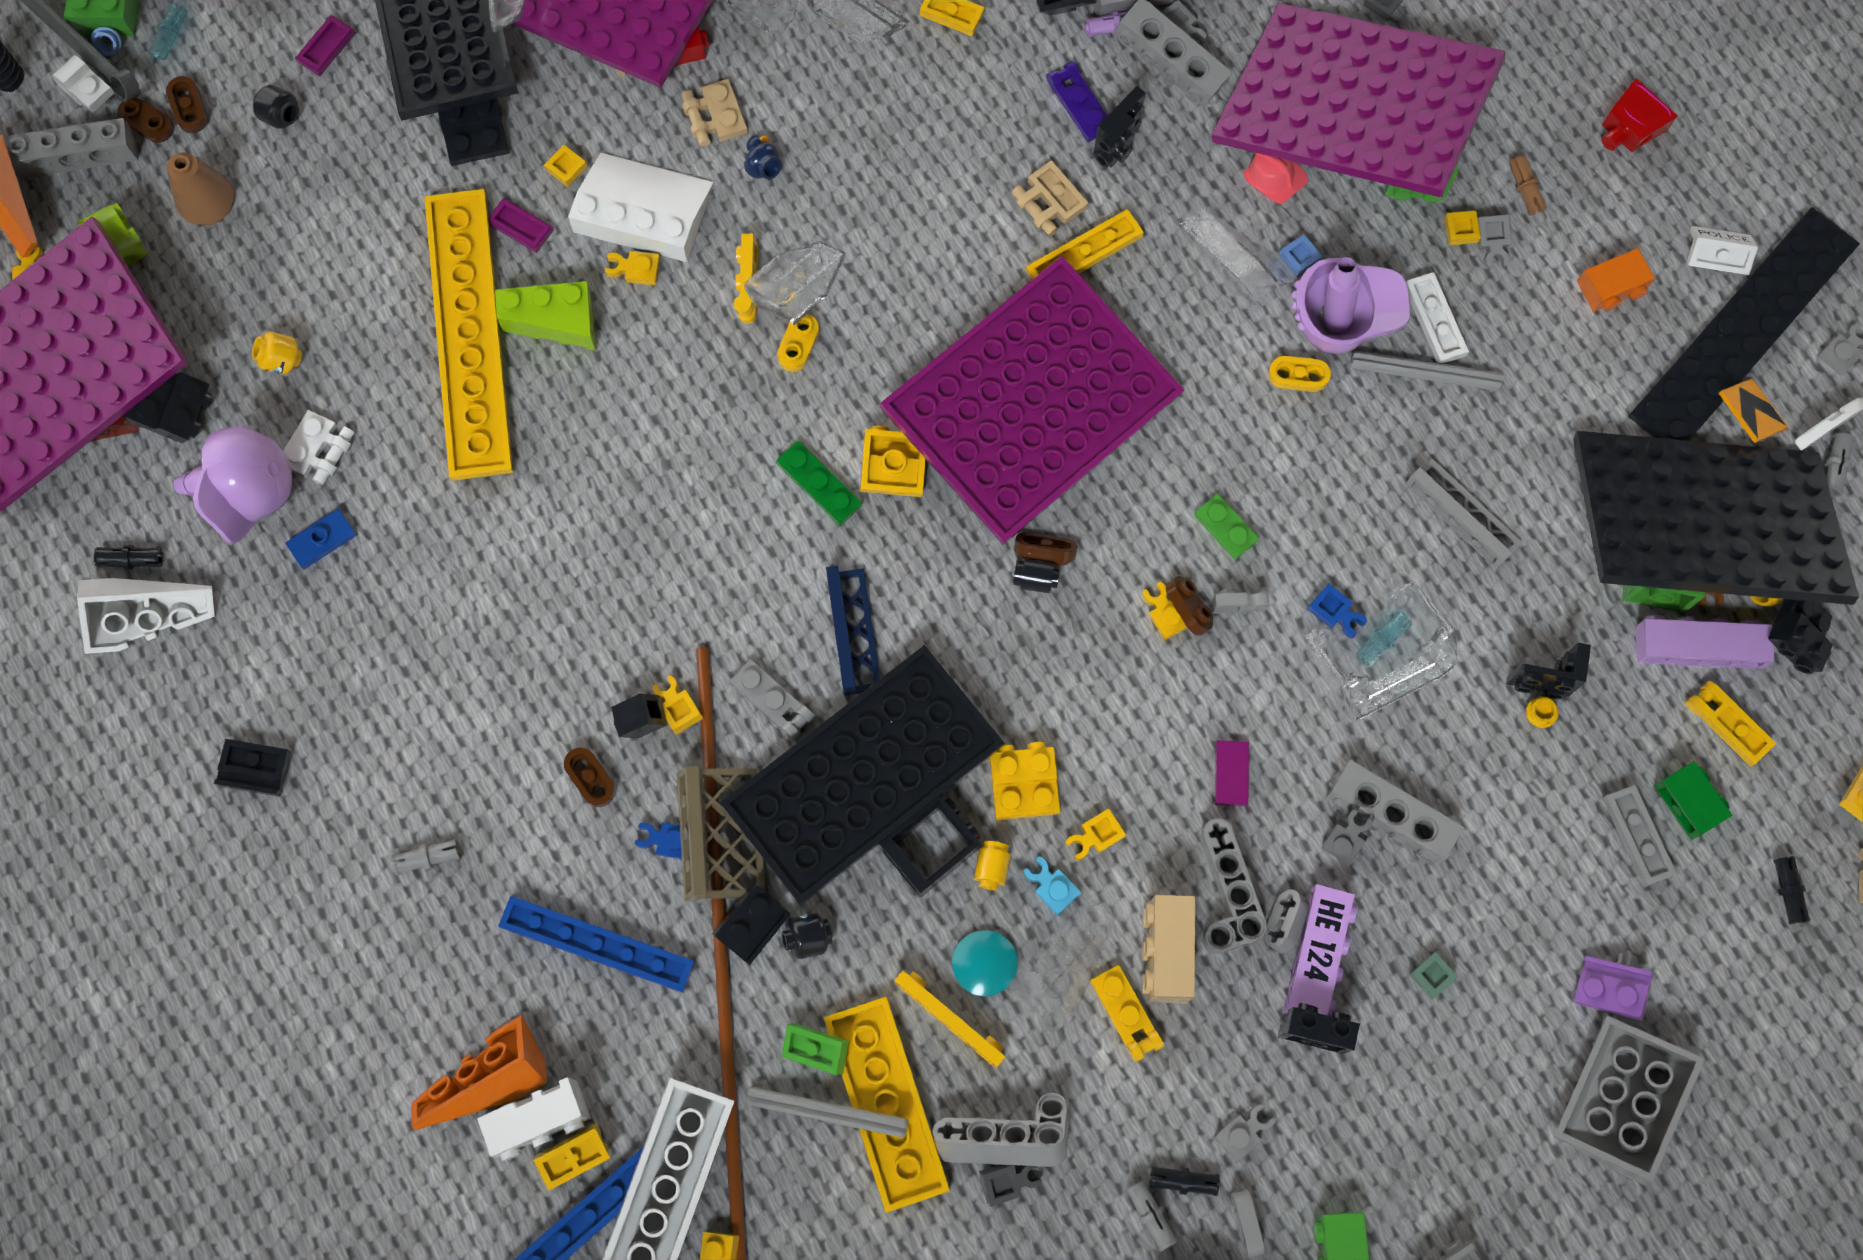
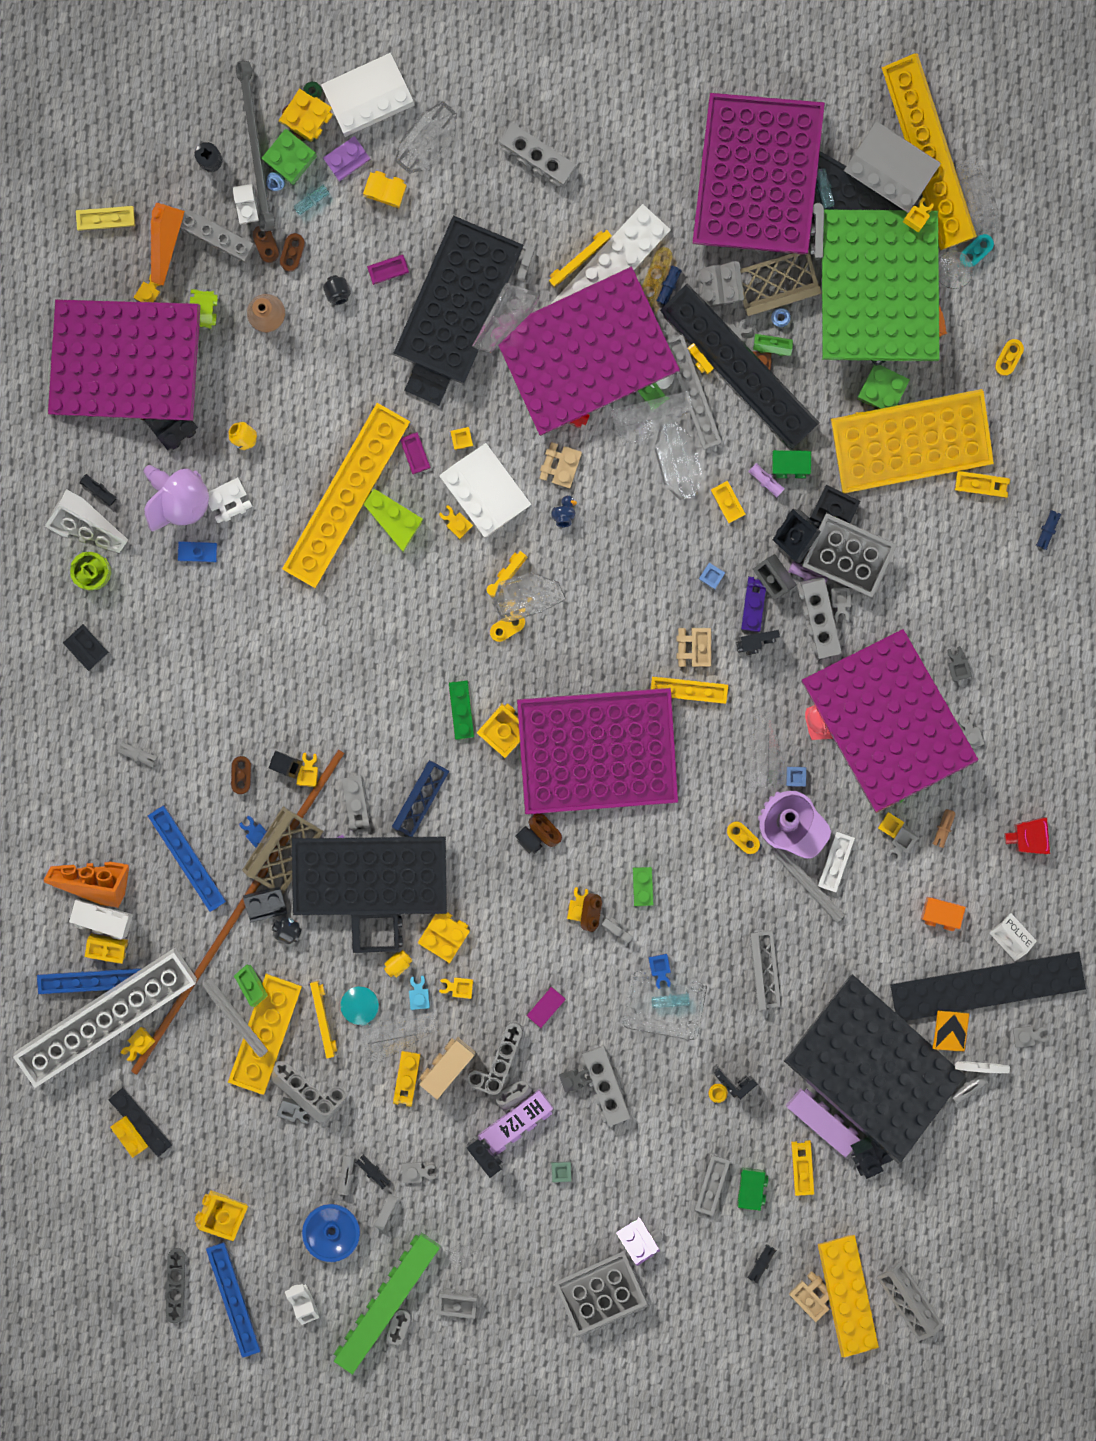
camera: 40 degrees right, 15 degrees up
(186, 661) = (90, 571): none -> lime brick
(1002, 104) = (711, 575): none -> medium blue plate
(1078, 47) = (774, 576): none -> dark grey brick

